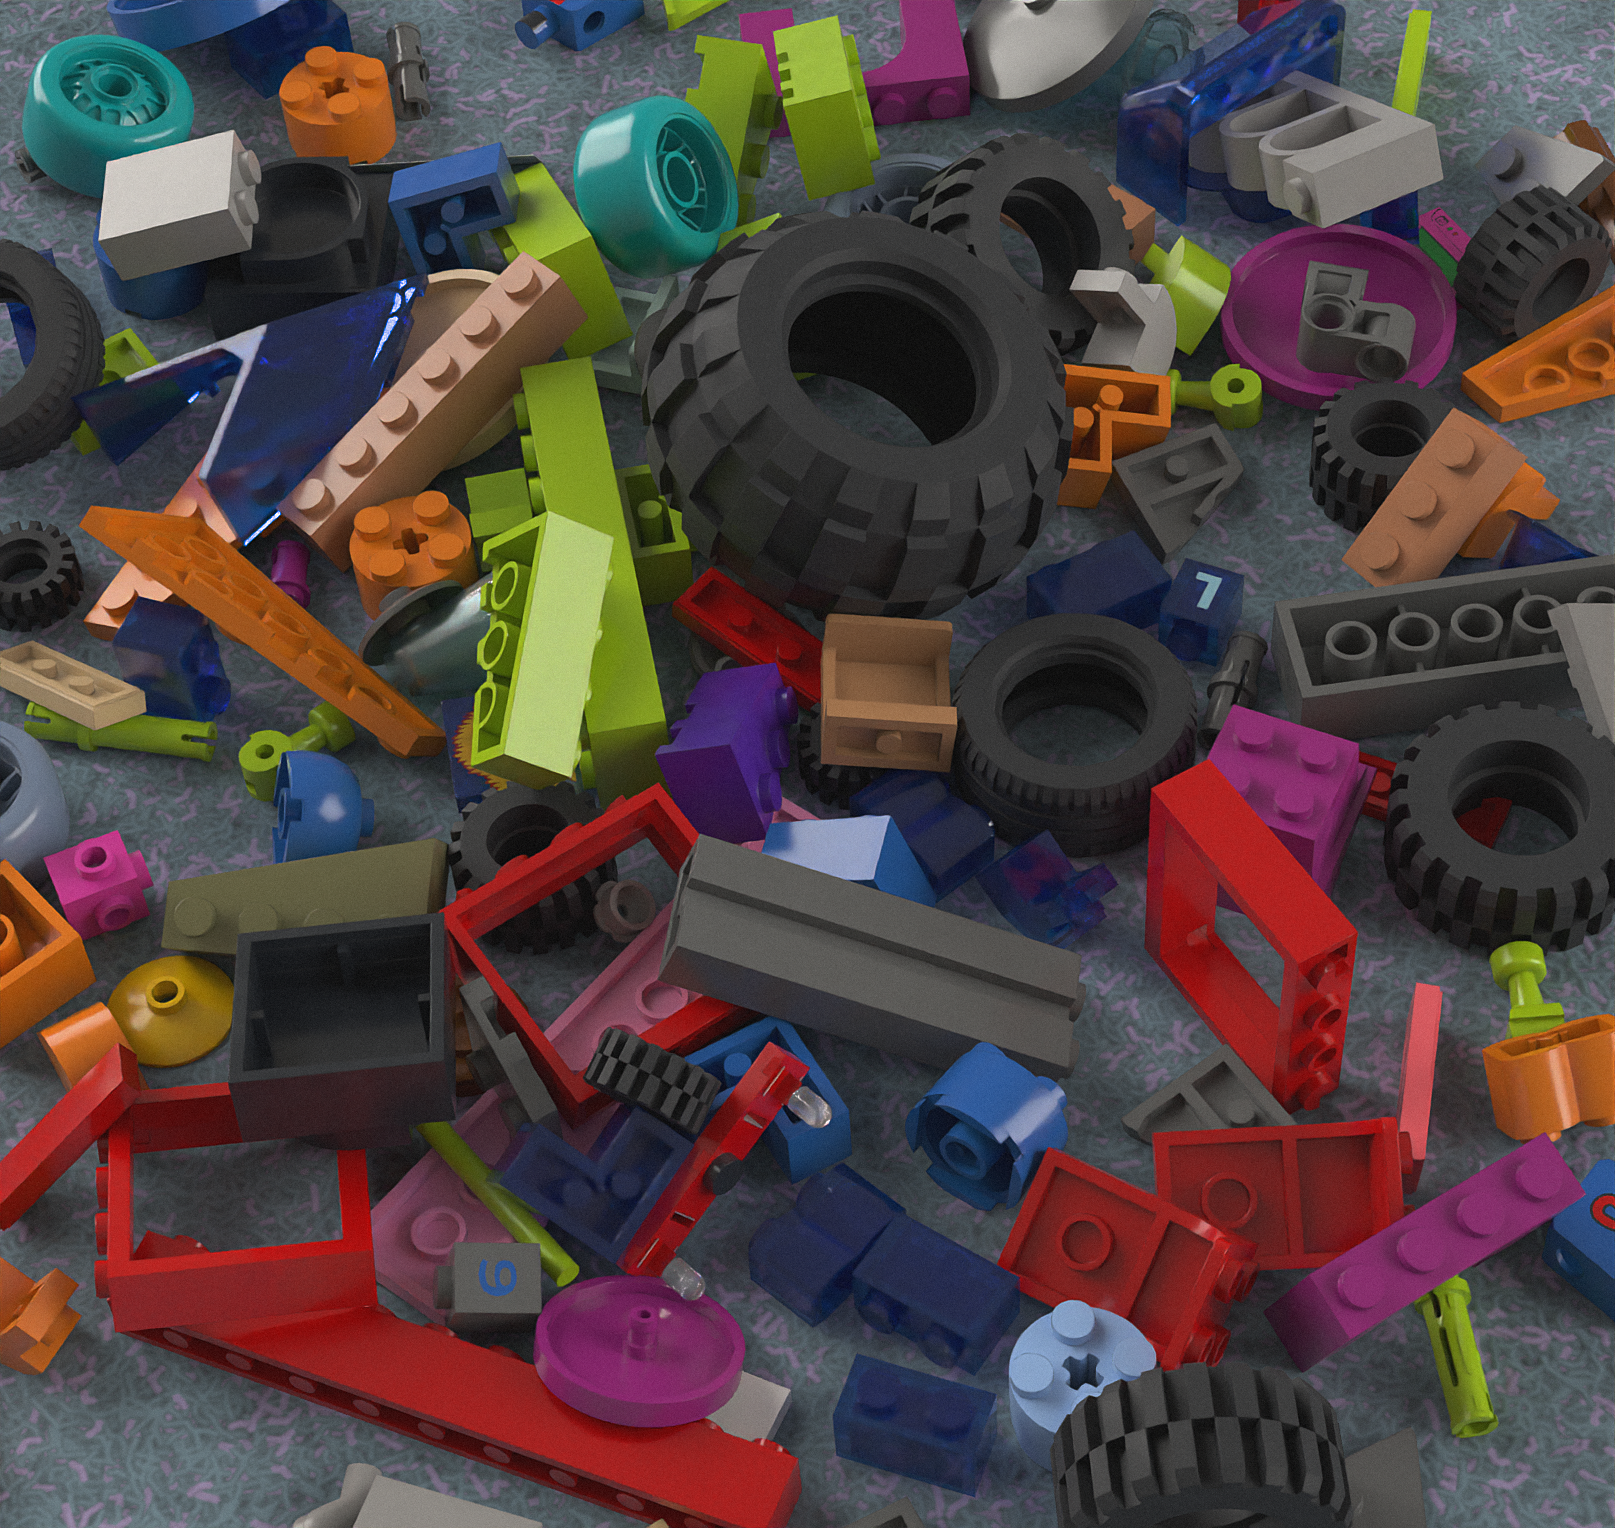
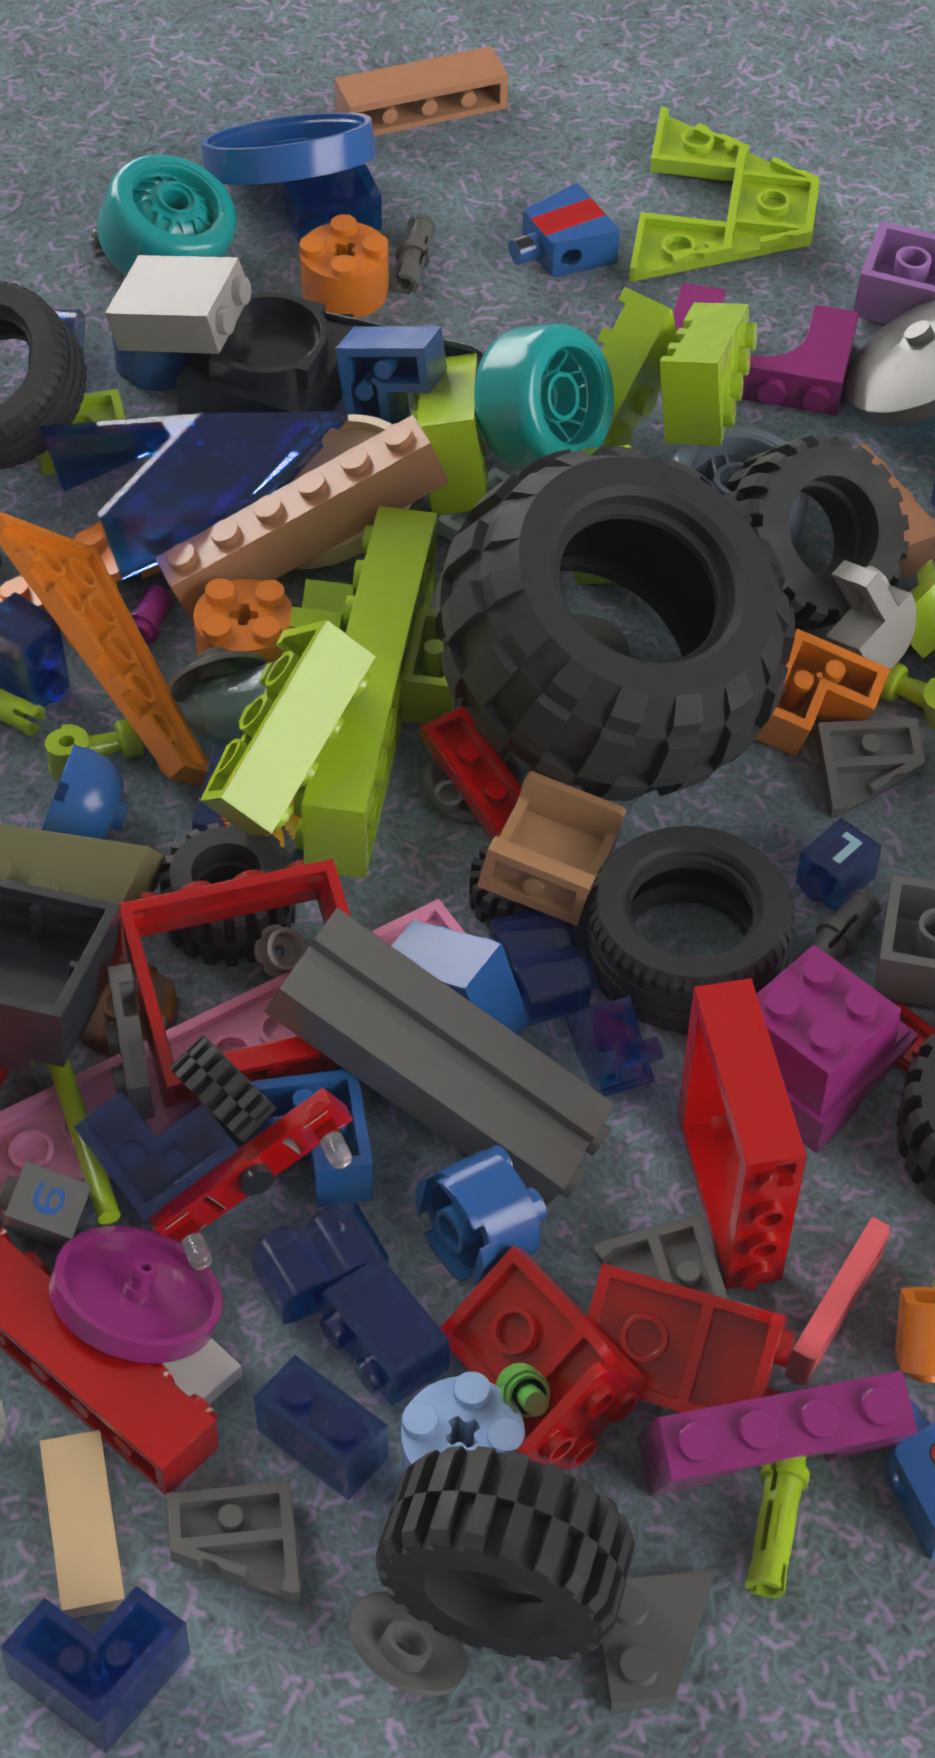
camera: 15 degrees right, 0 degrees up
(731, 752) = (411, 855): dark purple wedge -> none
(1109, 580) = (772, 818): clear blue brick -> none
(1130, 1298) = (526, 1388): none -> bright green cylinder

